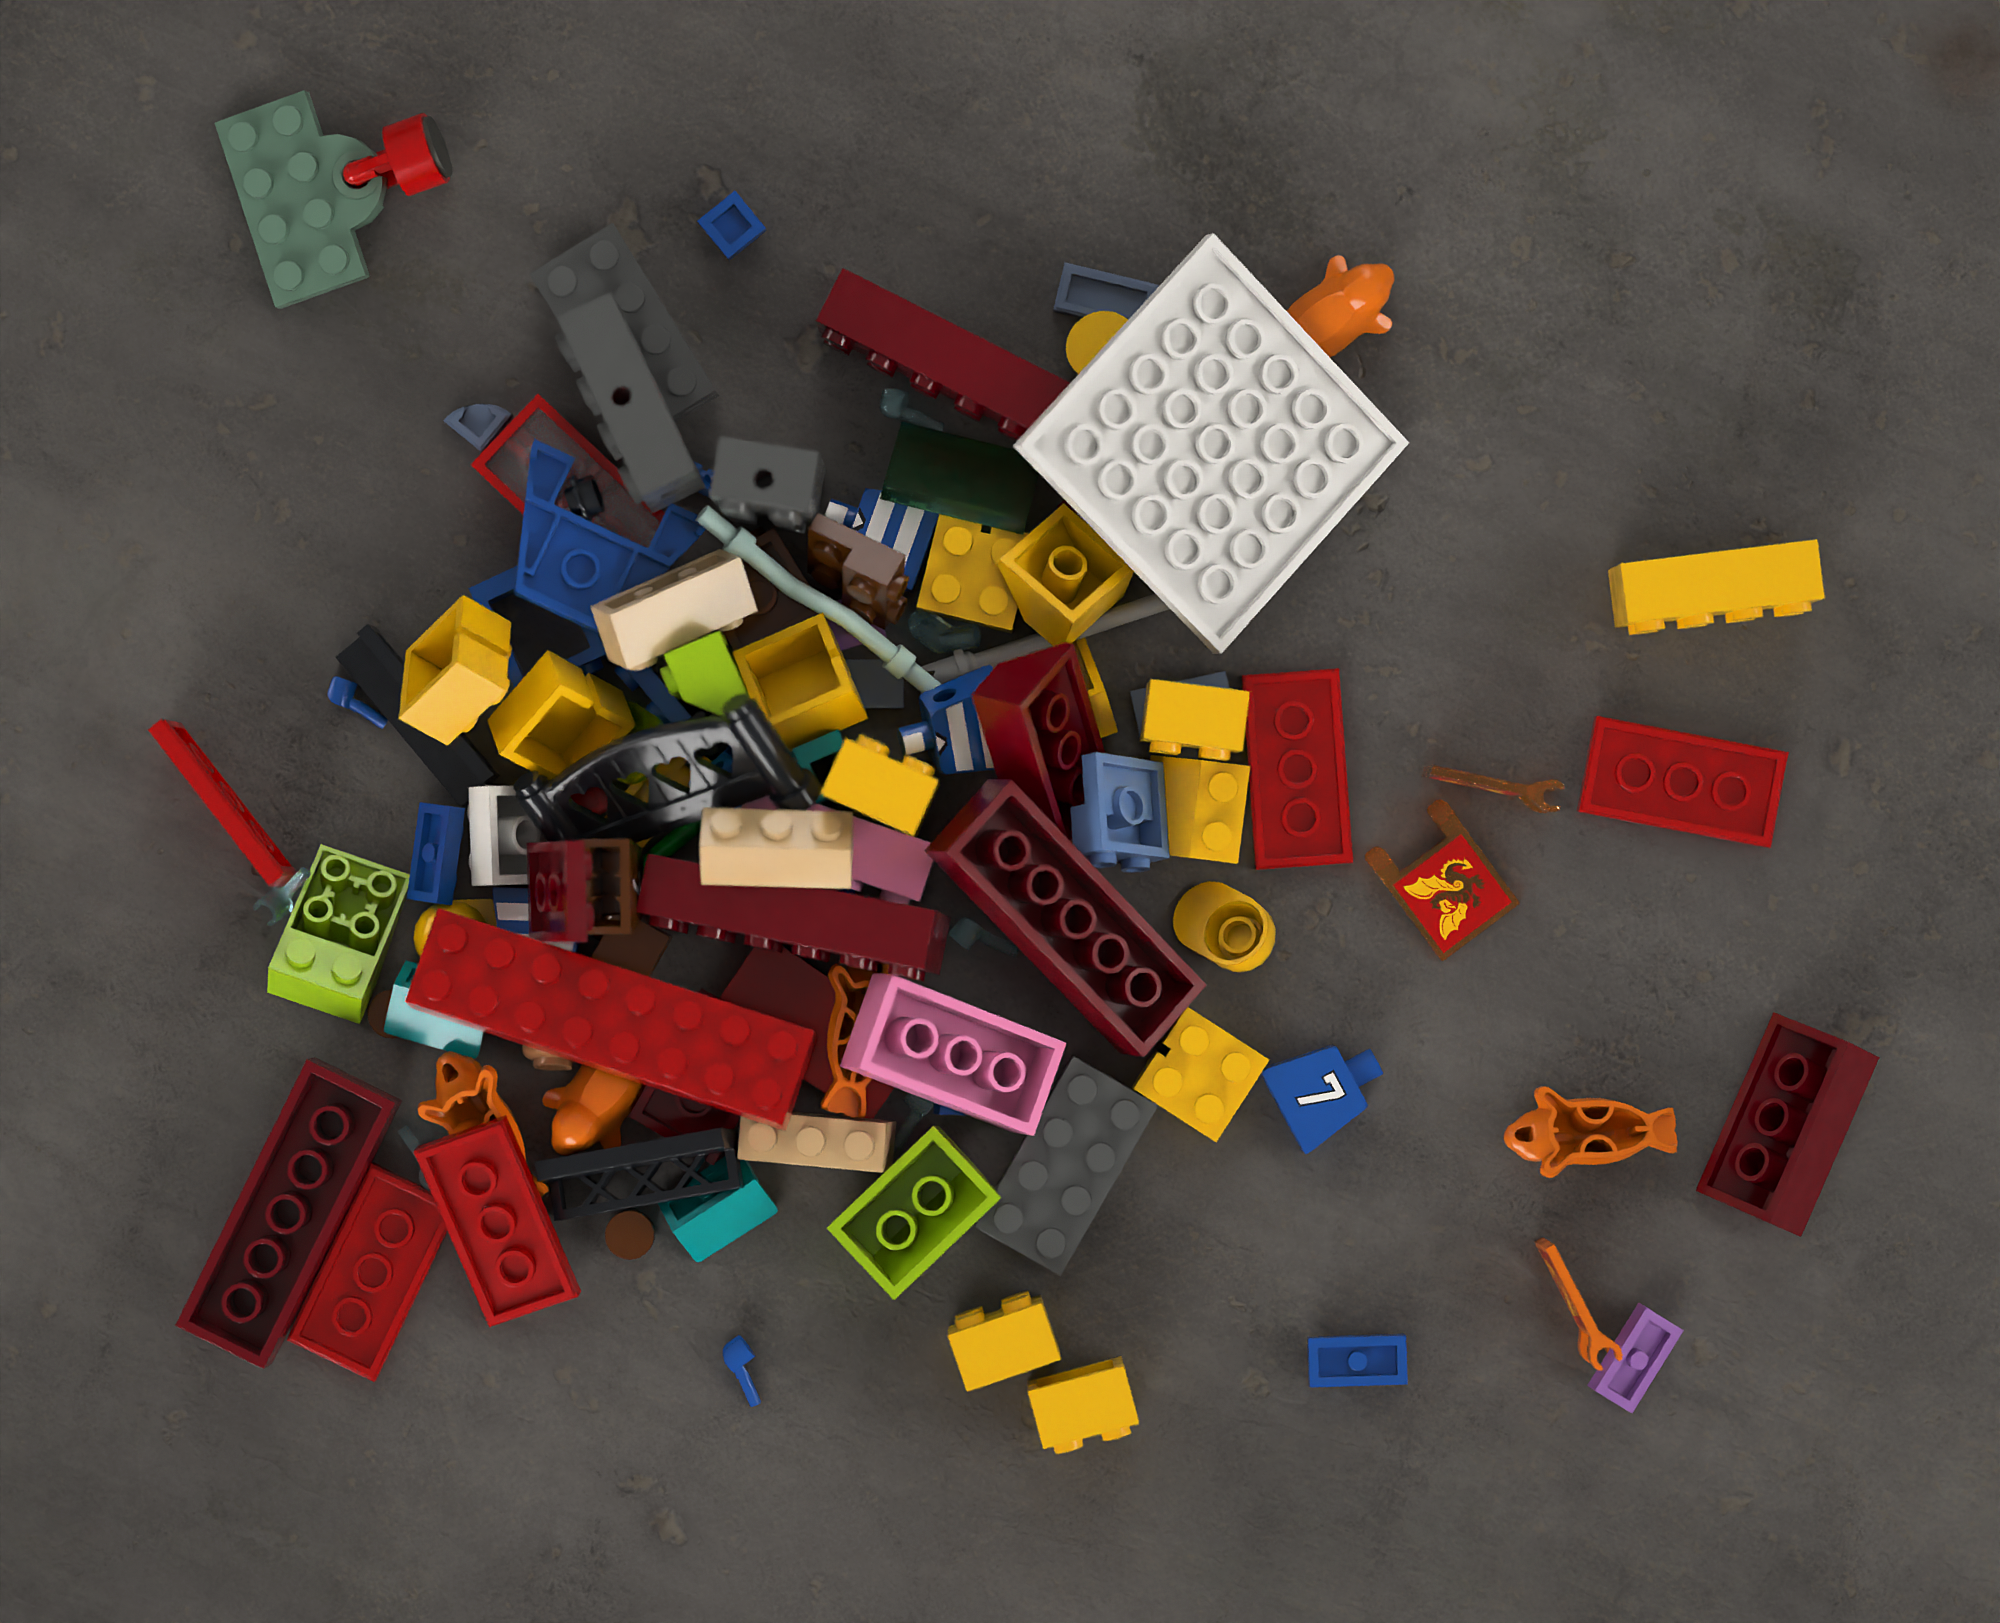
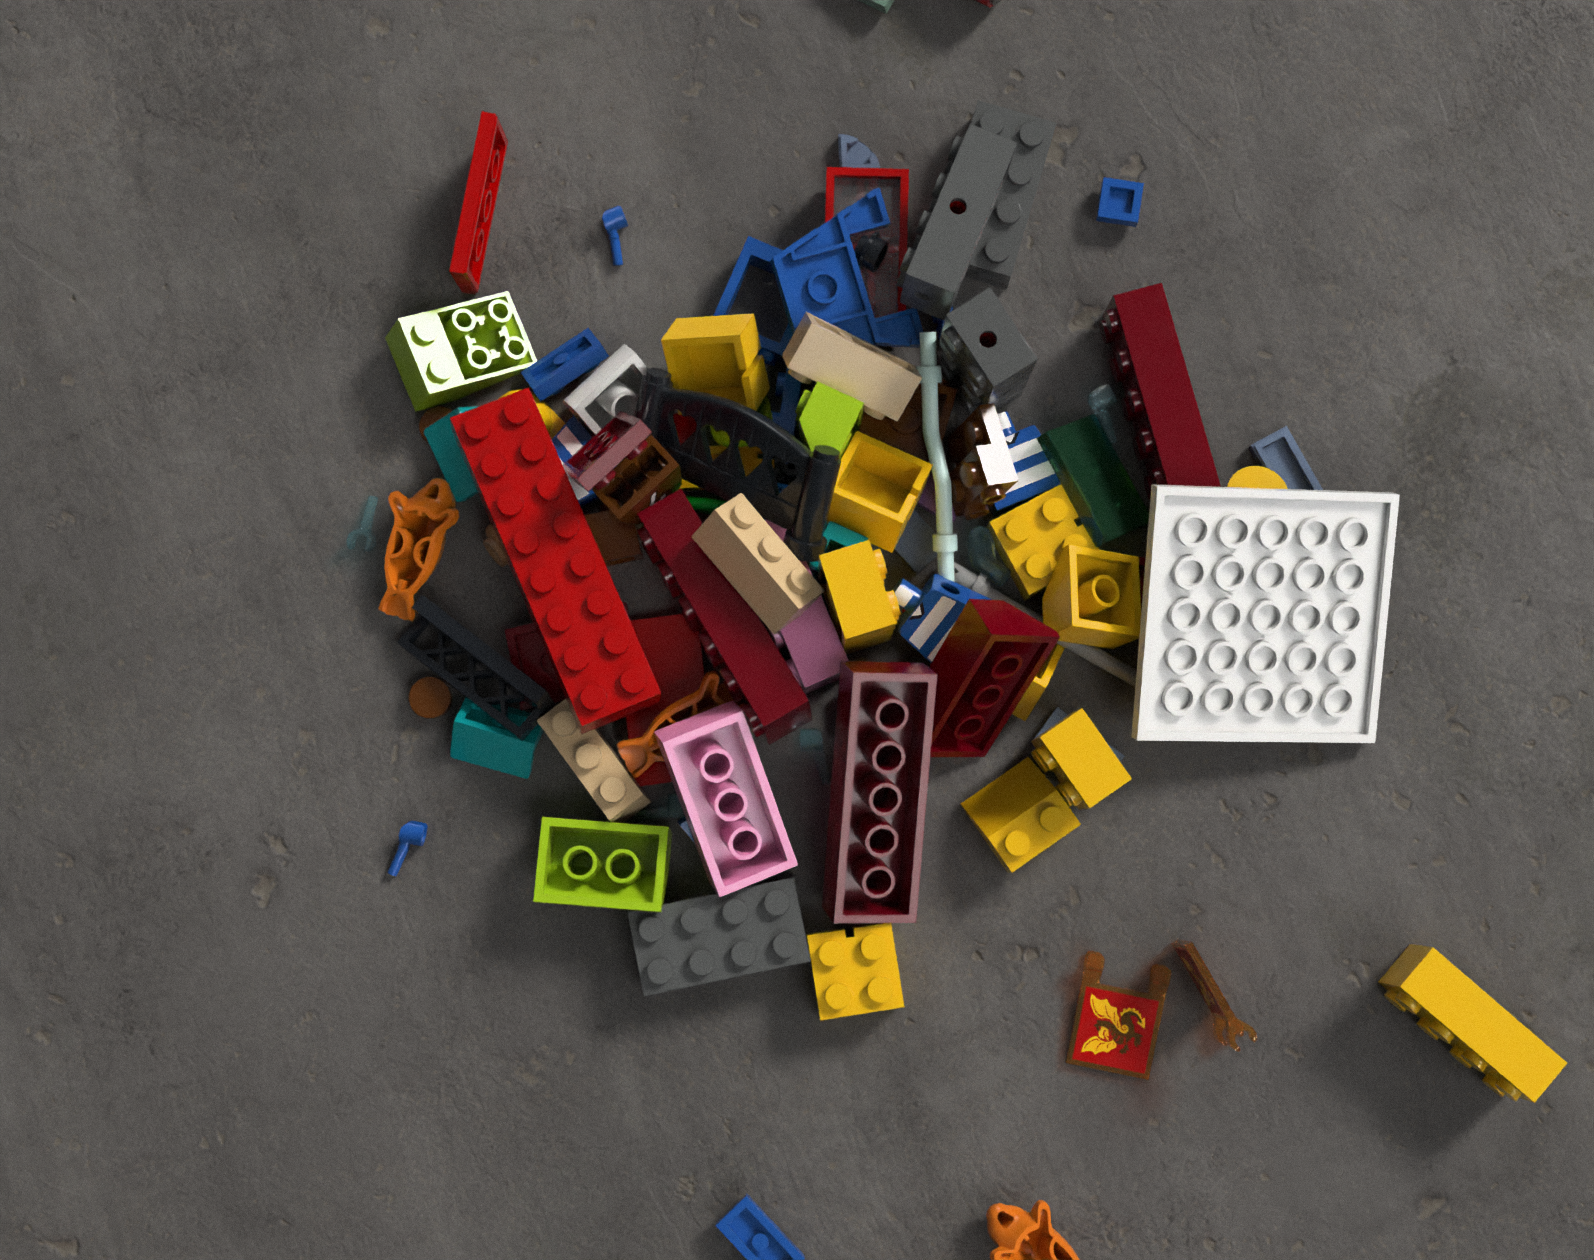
camera: 55 degrees right, 5 degrees down
(279, 899) = (450, 295): clear light blue hand -> none
(288, 1212) = (254, 470): dark red brick -> none
(371, 1273) = (266, 558): red tile -> none
(380, 675) = (641, 275): black fence -> none
(456, 670) = (689, 269): yellow piece -> none
(497, 1221) = (364, 605): red tile -> none
(590, 1110) = (487, 603): orange animal -> none
(1002, 1341) = (569, 997): yellow piece -> none
(1083, 1405) = (573, 1086): yellow piece -> none
(1121, 812) = (976, 768): medium blue plate -> none
(1224, 926) = (962, 901): yellow cap -> none
(1297, 769) = (1103, 859): red tile -> none
(1320, 1091) = (912, 1059): blue torso -> none
(1345, 304) = (1425, 625): orange animal -> none
(1682, 781) = (1321, 1116): red tile -> none

